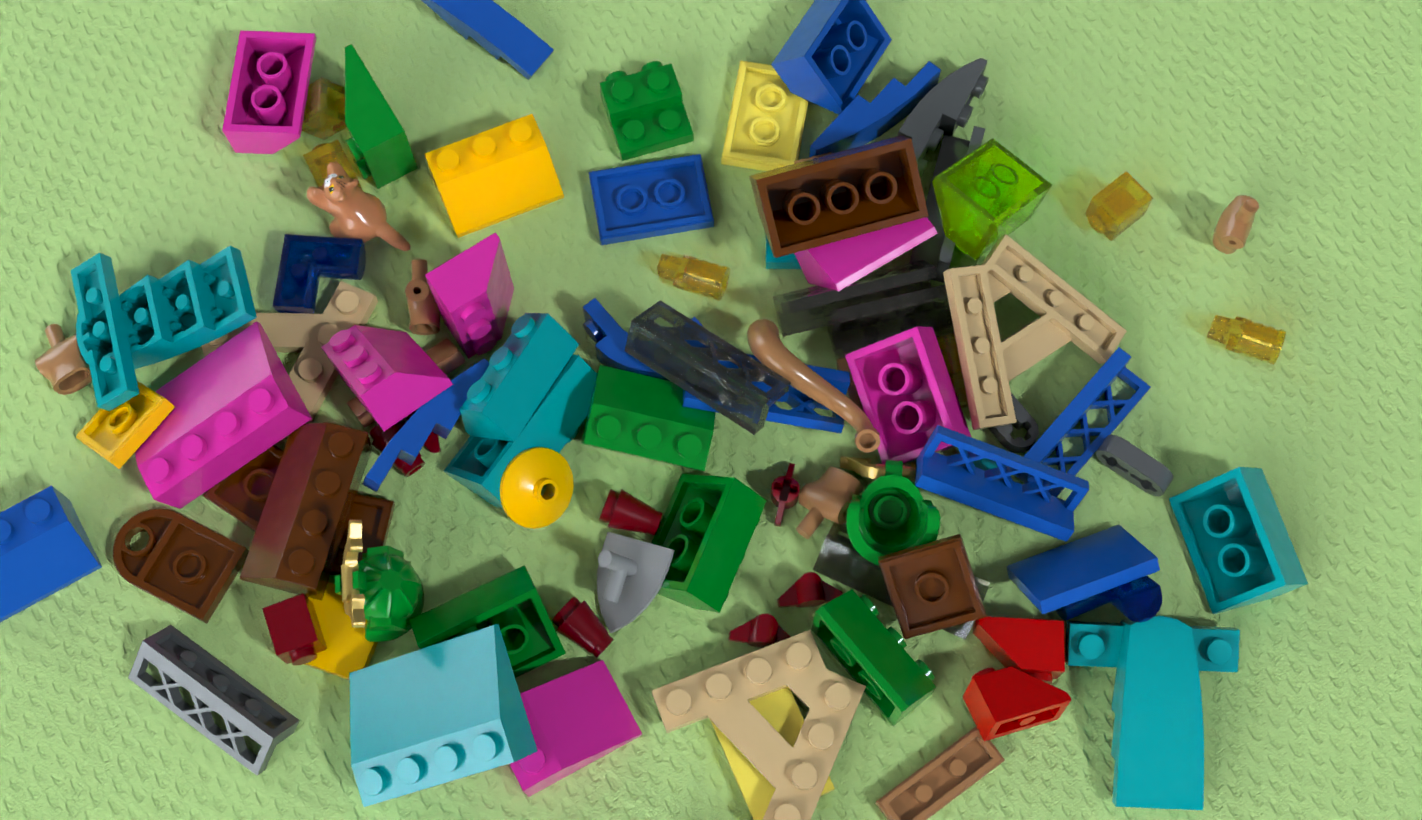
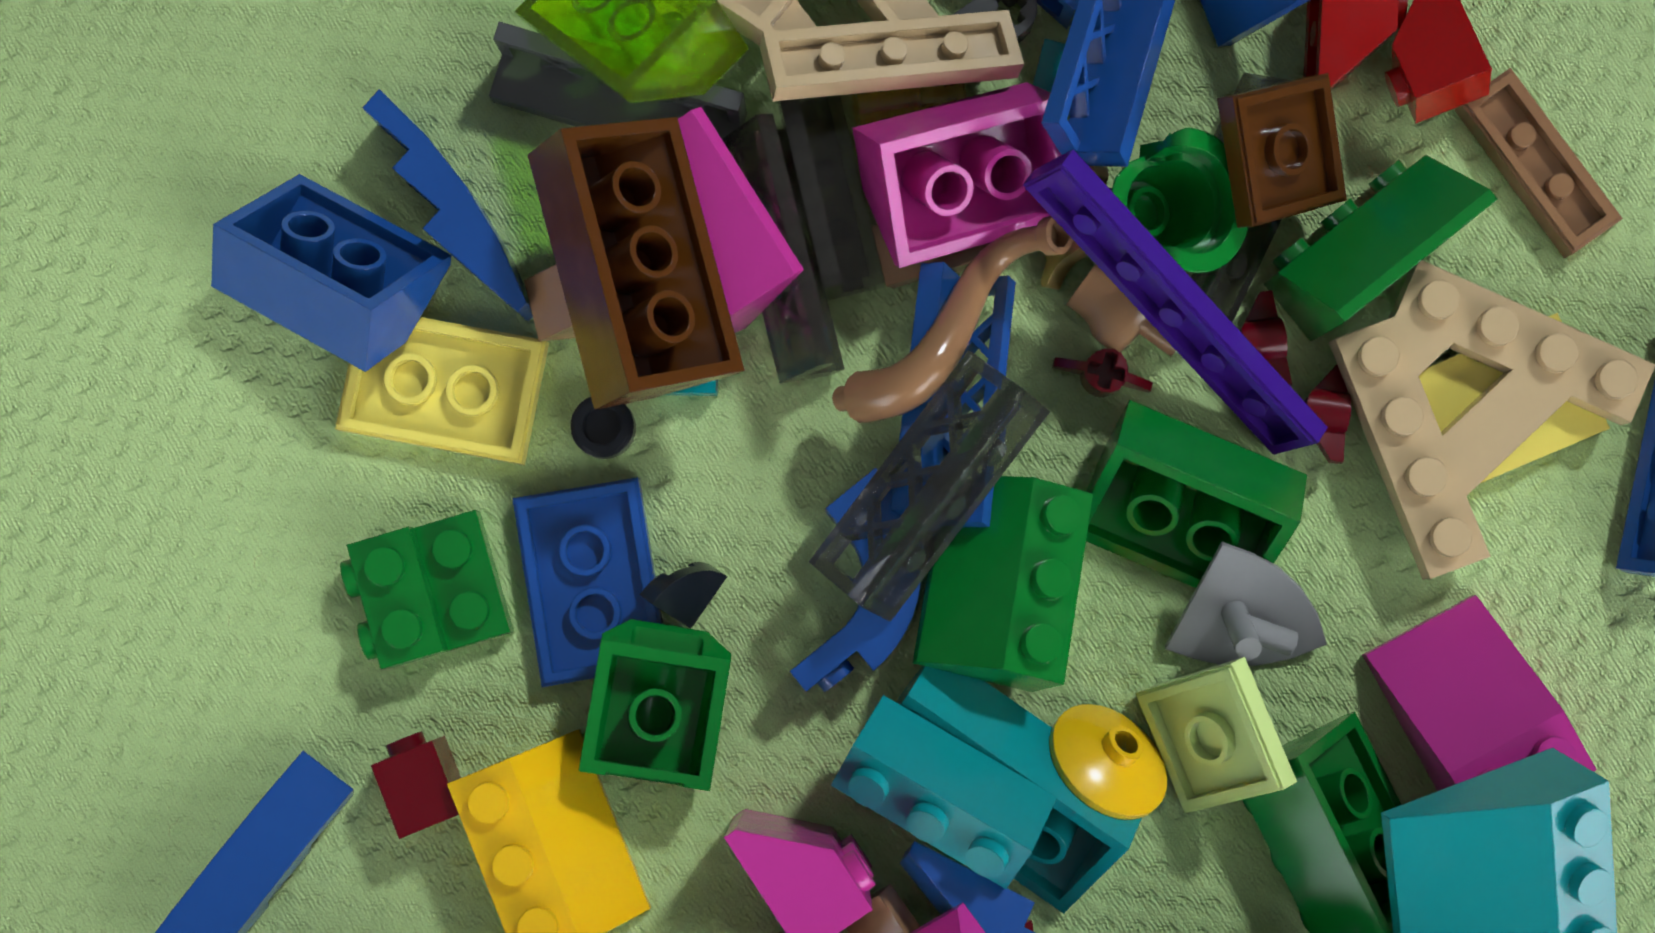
camera: 90 degrees left, 15 degrees up
(537, 100) = (416, 782): none -> dark red brick
(550, 549) = (1216, 736): none -> yellowish green tile
(575, 226) = (656, 704): none -> green slope
(582, 627) = (1321, 687): dark red cone -> none
(629, 513) = (1141, 615): dark red cone -> none
(643, 246) = (685, 591): none -> black tile
(695, 275) = (736, 508): clear yellow hinge -> none
(741, 204) = (603, 431): none -> black tile
(823, 516) = (1173, 303): none -> dark purple tile
(944, 109) = (450, 93): dark grey slope -> none

